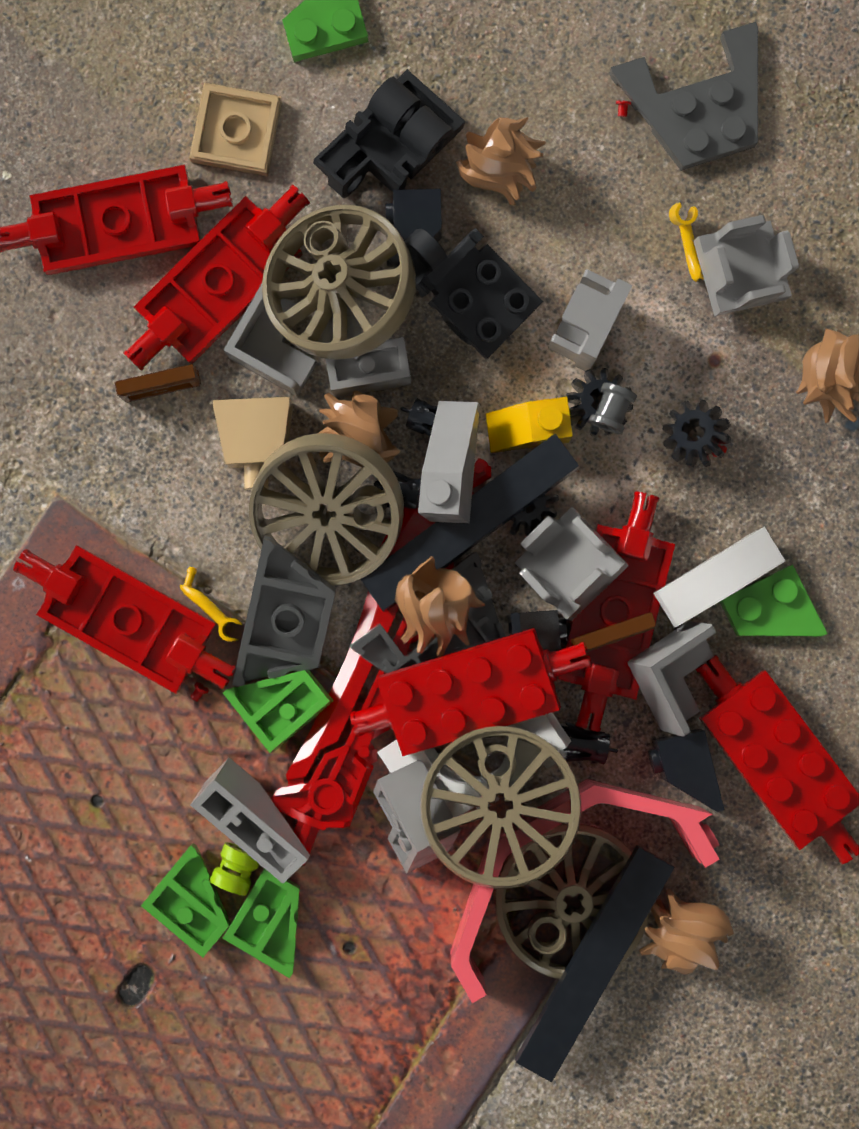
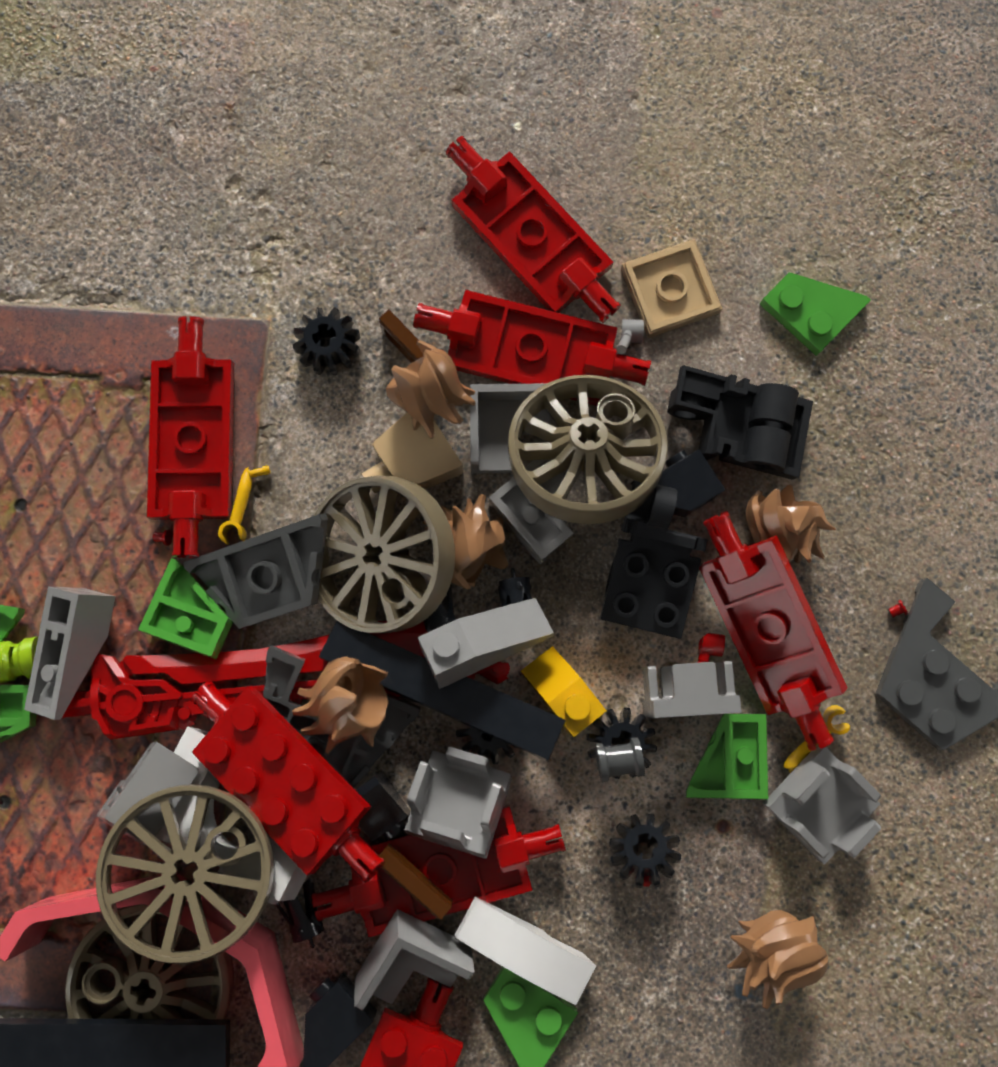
camera: 55 degrees right, 5 degrees down
(120, 442) = (341, 342): none -> black gear
(209, 384) = (429, 388): none -> medium nougat hair
(256, 186) = (631, 333): none -> light grey hand
(562, 280) = (711, 645): none -> red hand
(577, 219) = (772, 628): none -> red plate
(666, 318) = (733, 760): none -> bright green wing

